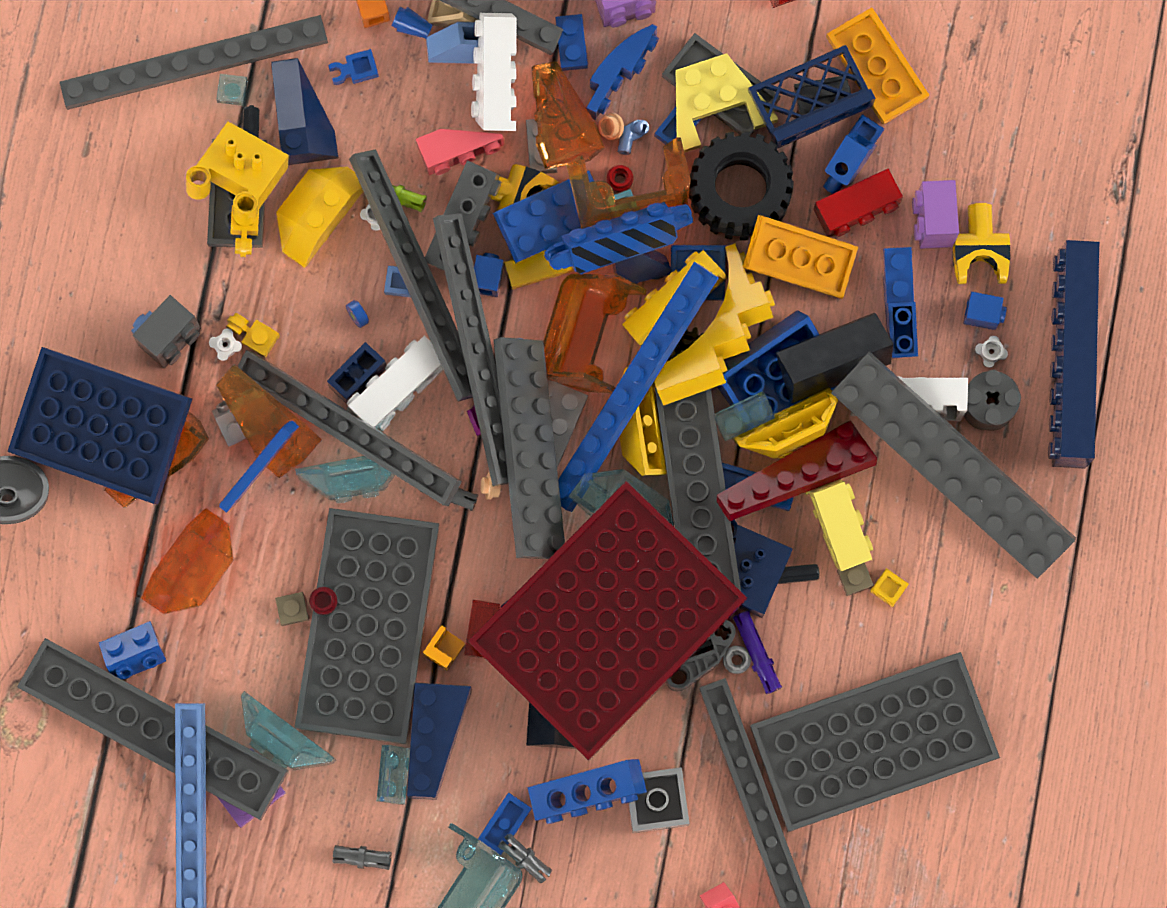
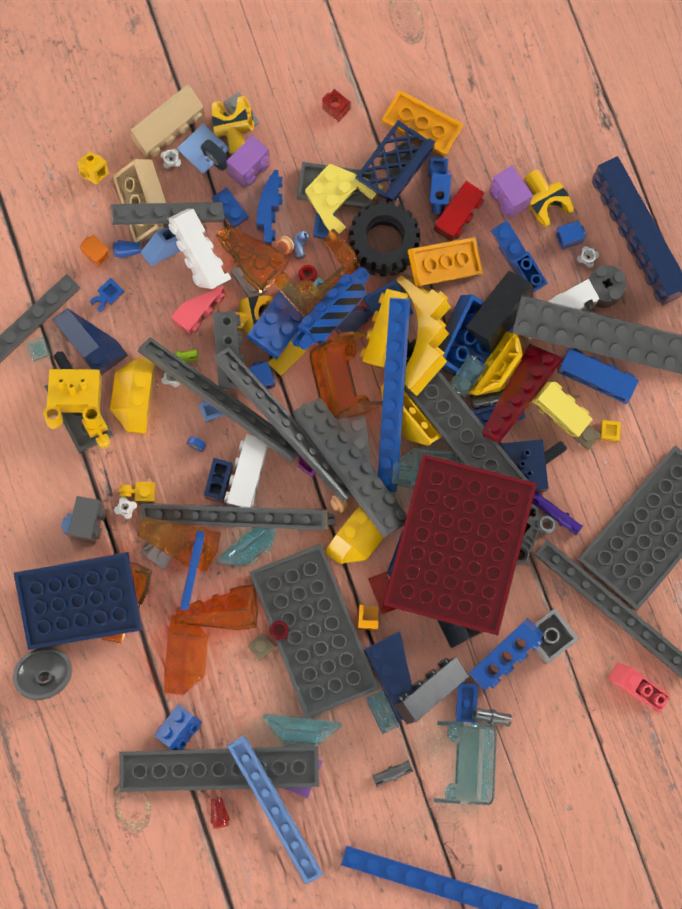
camera: 35 degrees left, 0 degrees up
(121, 783) = (219, 814): none -> clear red cone
(277, 543) = (229, 611): none -> clear orange wedge
(466, 780) = (431, 690): none -> brick
(482, 542) = (355, 539): none -> yellow wedge
(750, 459) = (486, 400): none -> dark grey pin
(913, 508) = (598, 376): none -> blue brick

